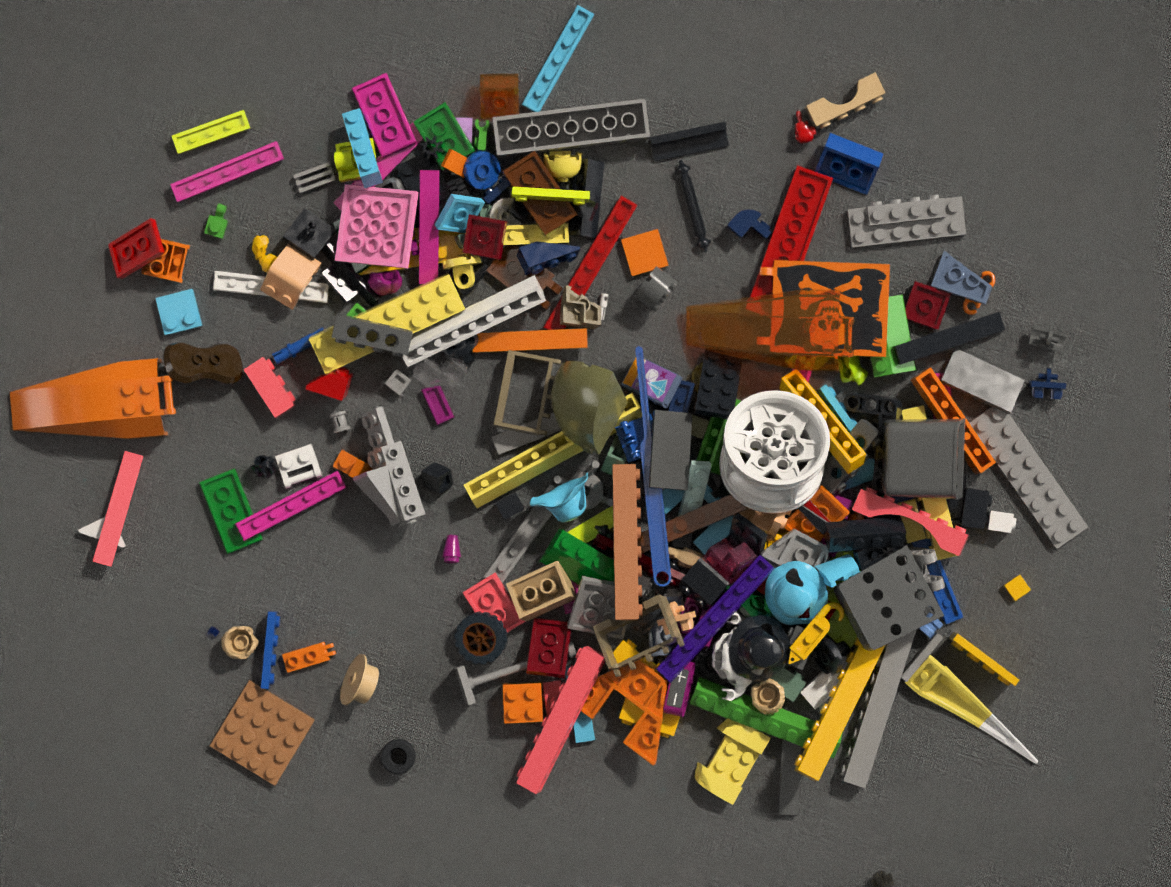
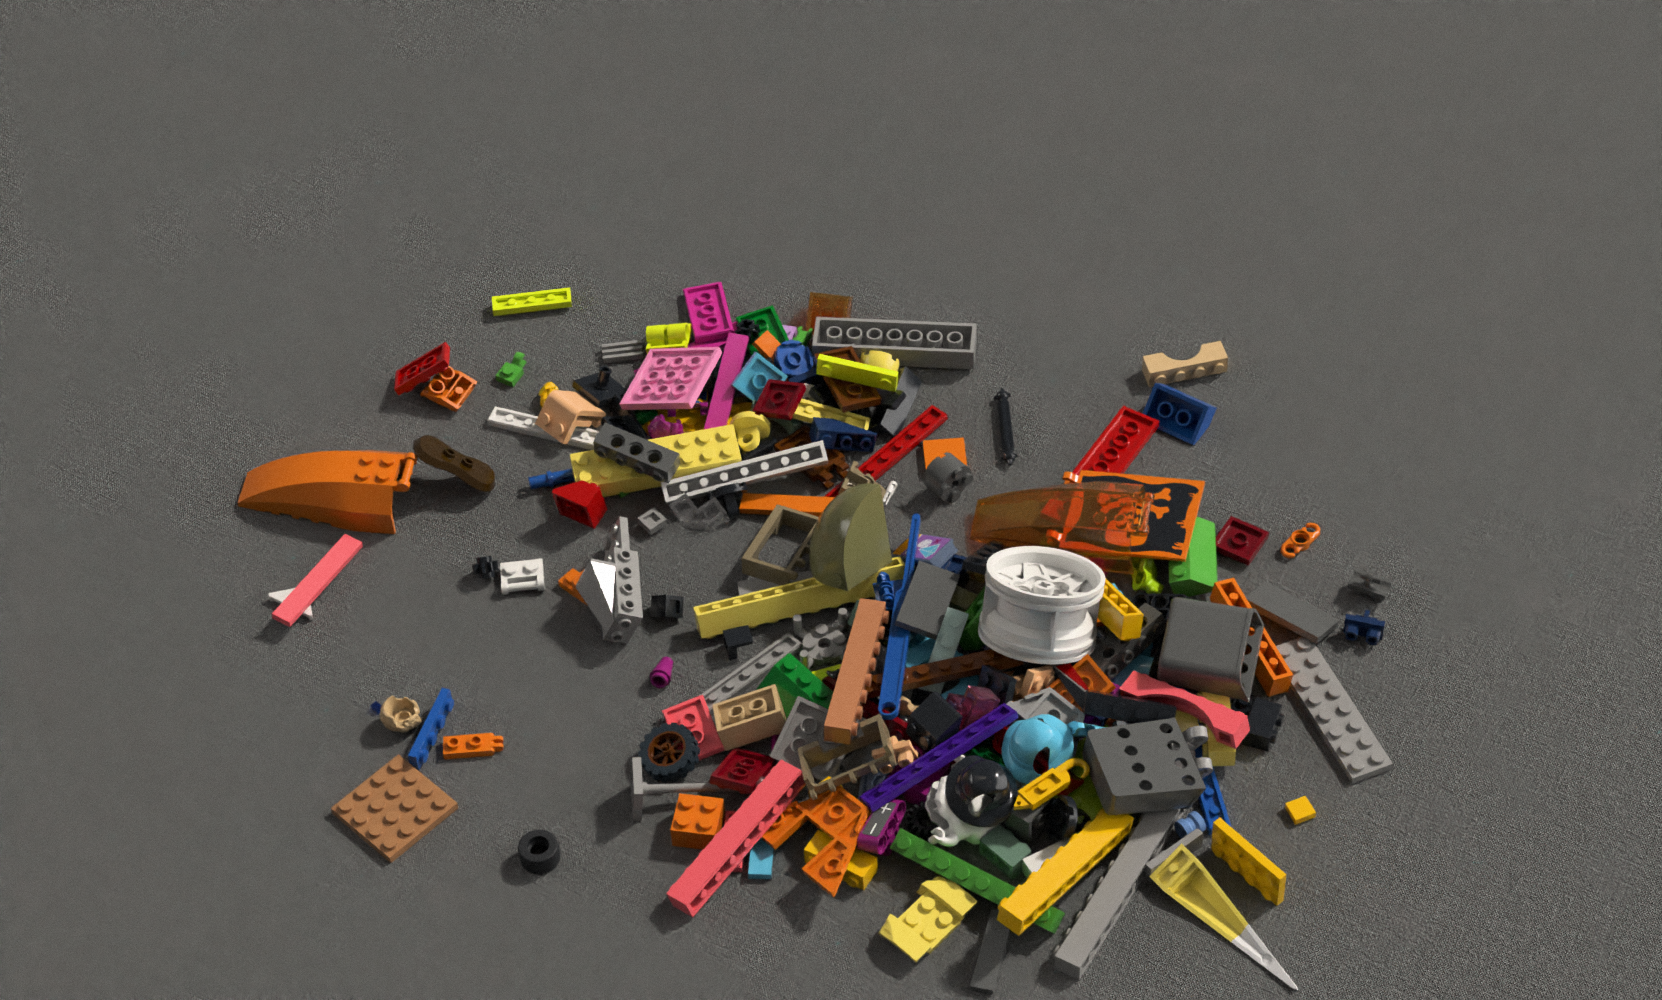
camera: 10 degrees right, 40 degrees down
(179, 312) = (449, 430): medium azure plate -> none
(227, 171) = (536, 332): dark pink plate -> none
(228, 506) = (436, 605): green tile -> none
(270, 387) = (516, 504): coral brick -> none
(290, 505) = (501, 607): dark pink tile -> none
(339, 421) = (579, 544): light grey bush -> none
(359, 681) = (520, 766): tan piece -> none
(362, 148) = (677, 321): medium azure arch -> none
(438, 404) = (688, 548): magenta tile -> none
(558, 59) = (903, 291): medium azure tile -> none
(564, 501) = (798, 624): medium azure piece -> none
(689, 141) = (1014, 373): black panel -> none
(748, 219) = (1058, 443): dark blue brick -> none
(768, 696) = (983, 851): tan hair -> none
(803, 132) = (1135, 383): red piece -> none
(906, 221) = (1234, 468): light grey plate -> none
(949, 338) = (1259, 565): black tile -> none
(960, 281) = (1281, 522): sand blue wing -> none
(1001, 521) = (1290, 741): white brick -> none

